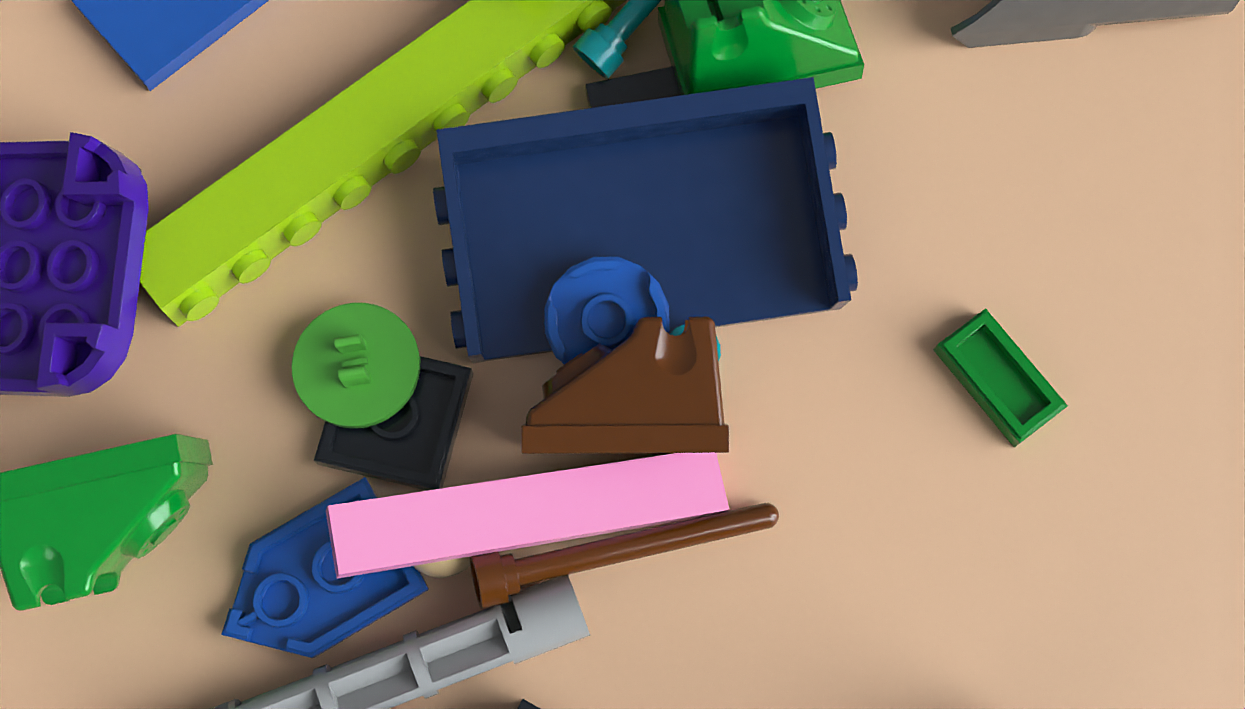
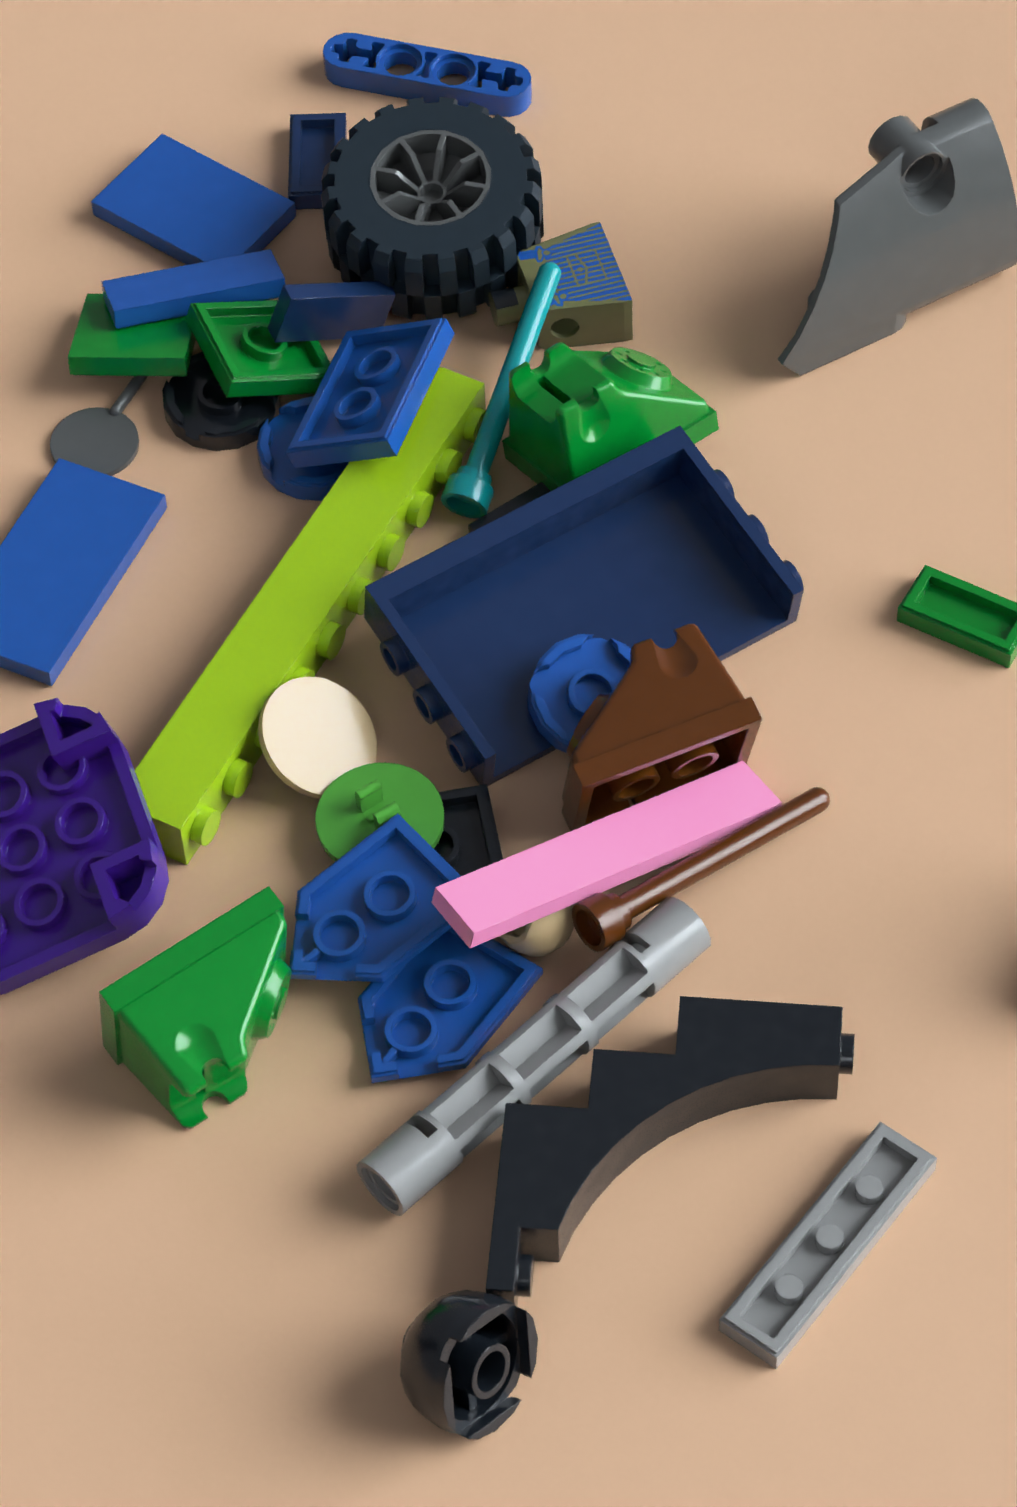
camera: 20 degrees left, 20 degrees down
(296, 461) = (370, 908): none -> blue tile
(338, 253) = (315, 733): none -> piece

